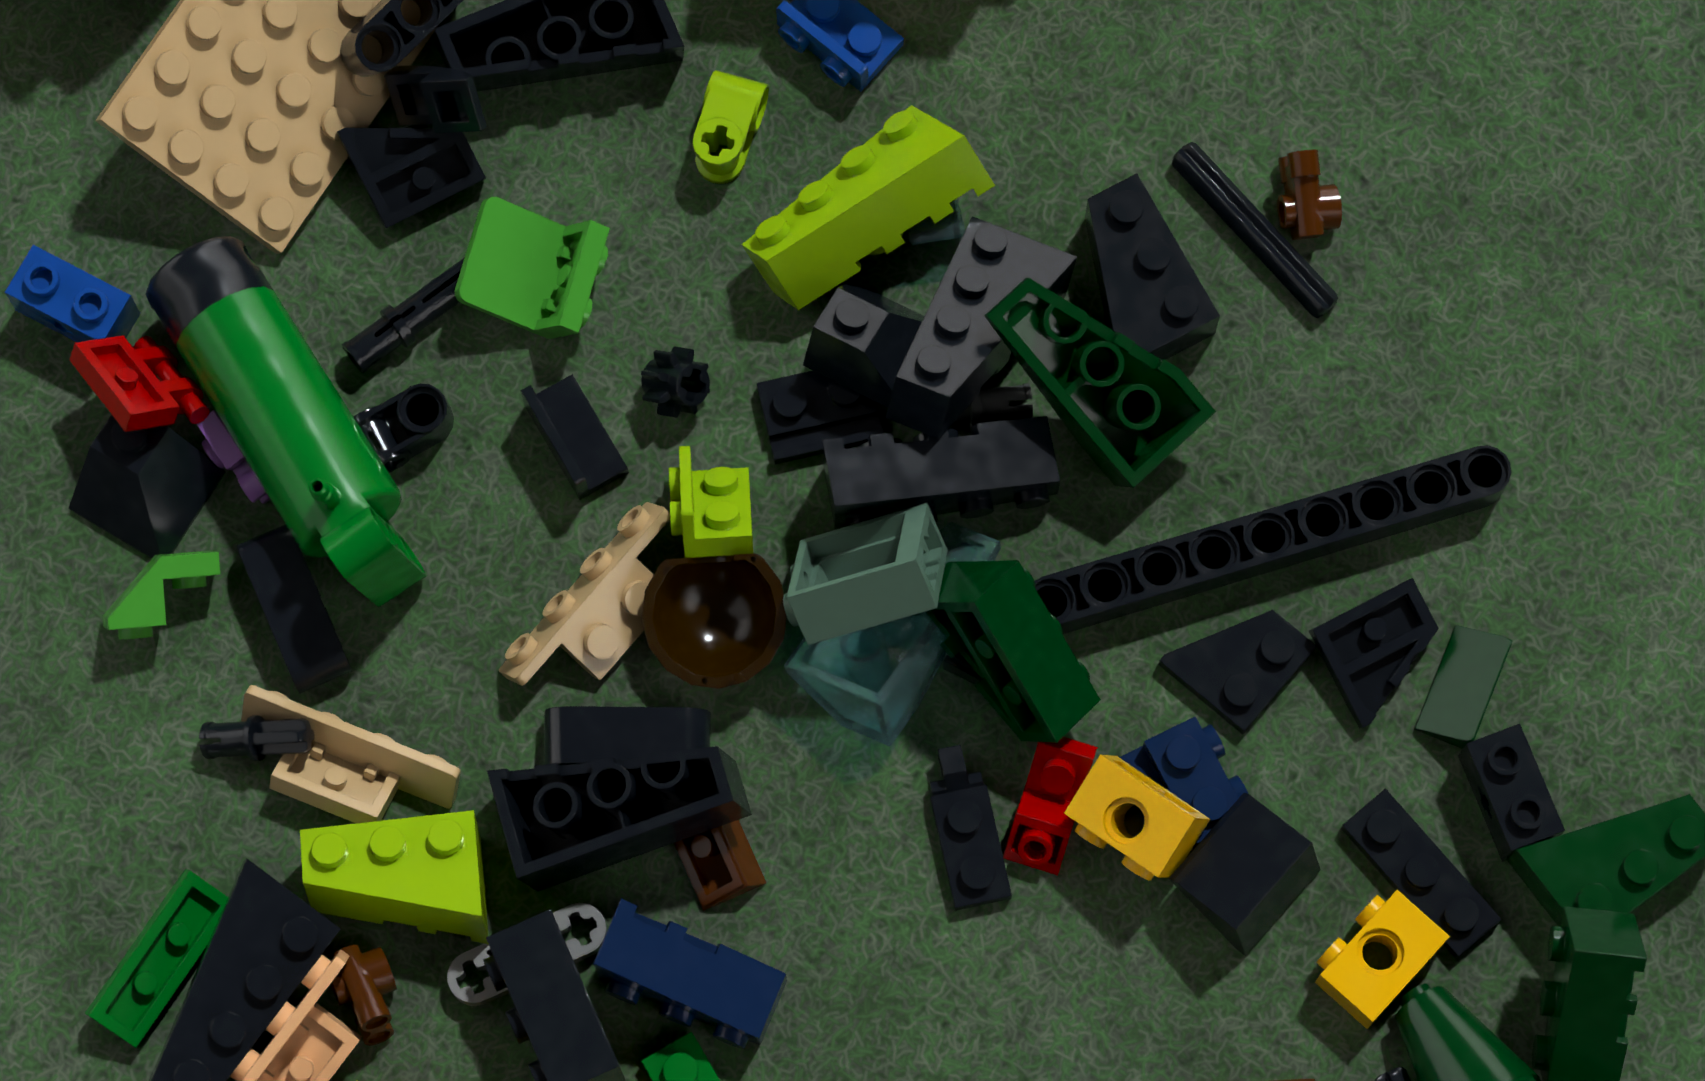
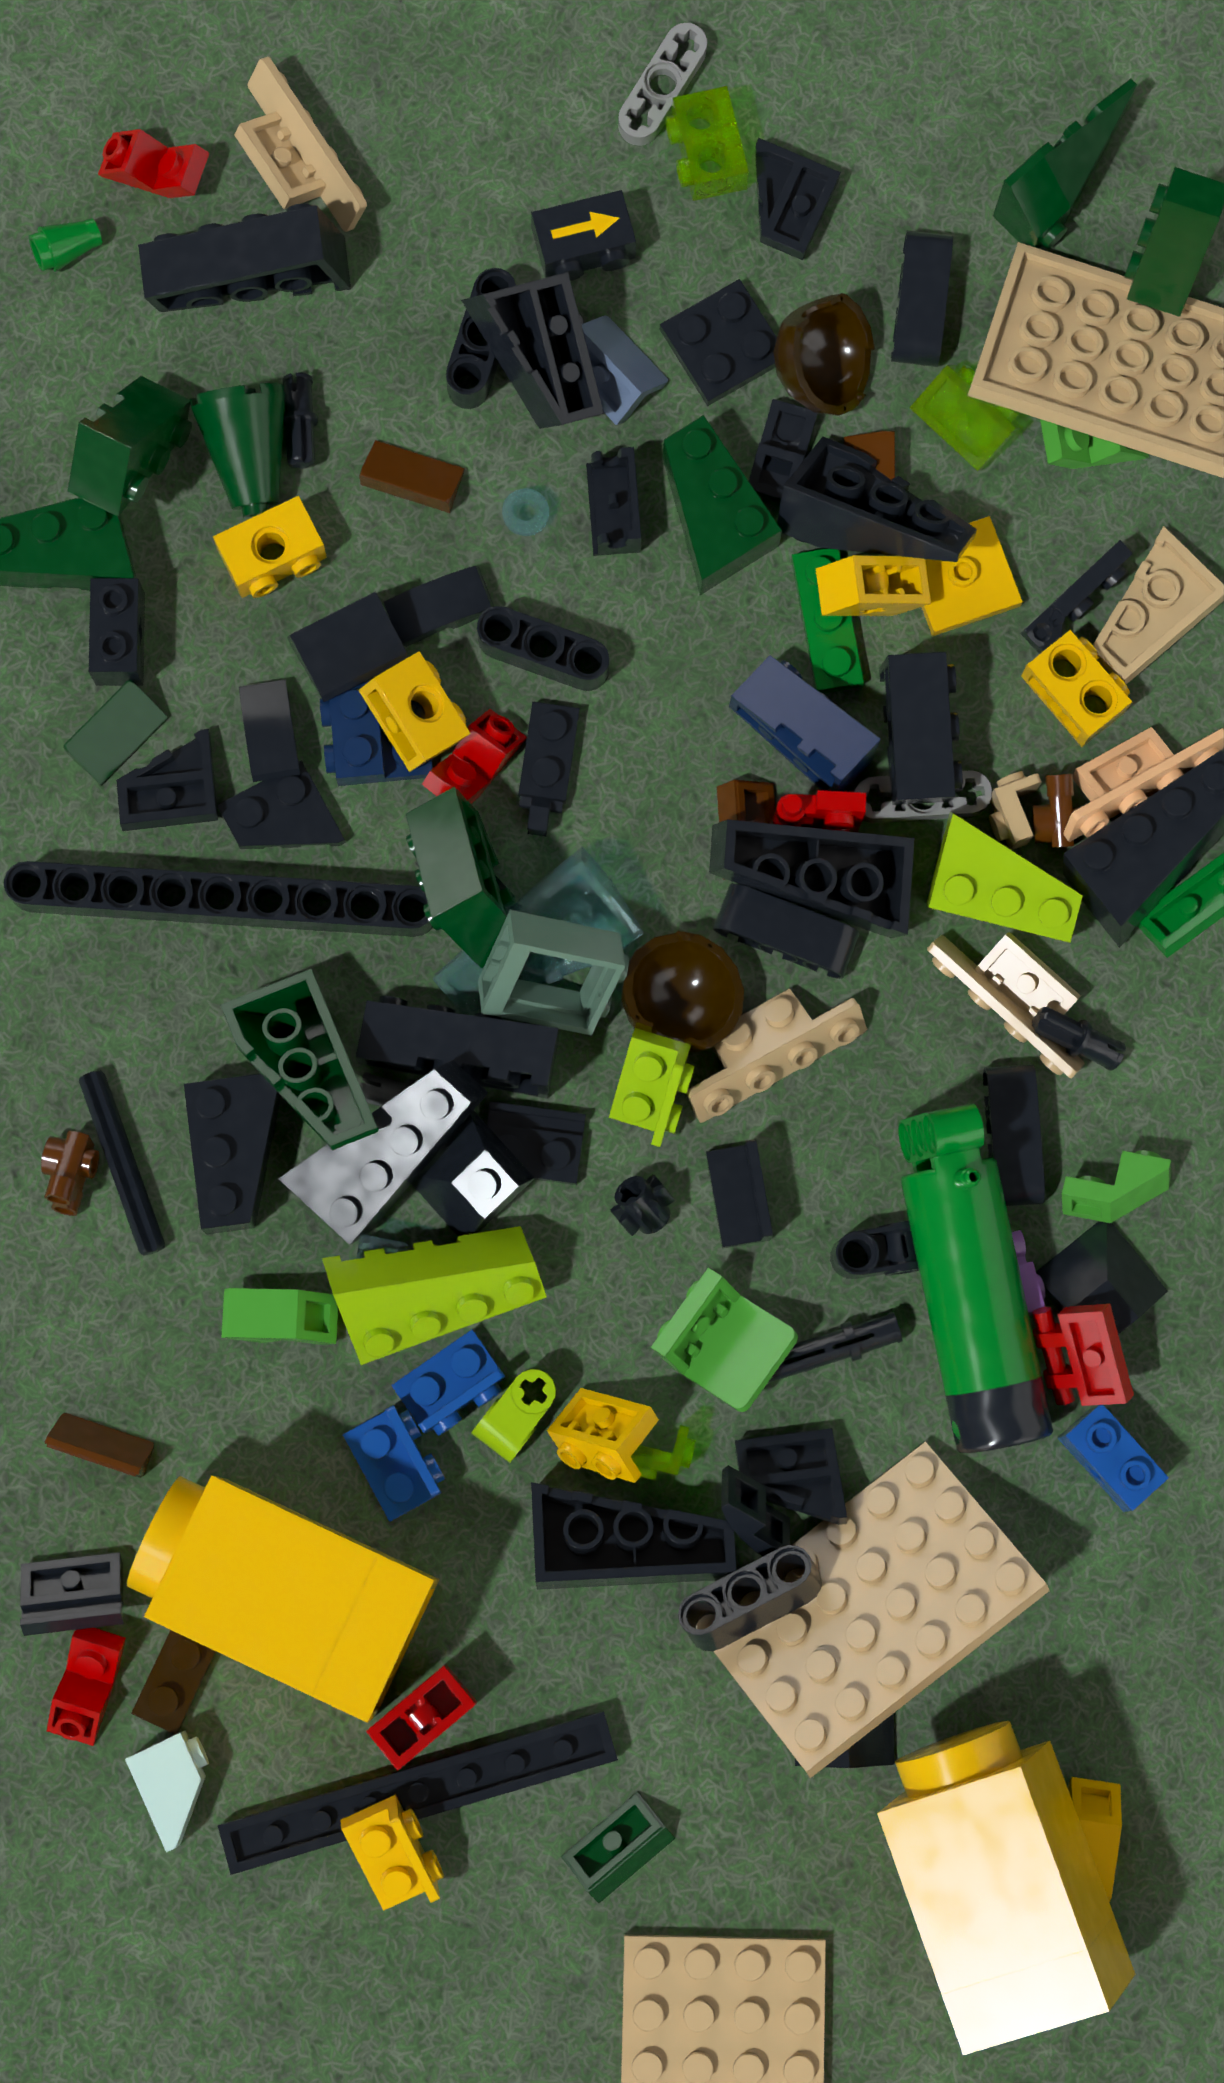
camera: 165 degrees left, 5 degrees up
(419, 959) = (1008, 817): none -> tan bracket
(568, 125) = (652, 1460): none -> clear neon green bracket
(628, 878) = (823, 811): none -> red plate
(629, 129) = (602, 1433): none -> yellow bracket
(810, 128) = (449, 1383): none -> blue bracket
(1024, 125) = (279, 1316): none -> bright green slope
(1047, 942) = (529, 630): none -> black beam
(1161, 967) = (438, 605): none -> black slope
(1294, 749) = (269, 730): none -> black slope
(1420, 871) = (211, 605): black plate -> none

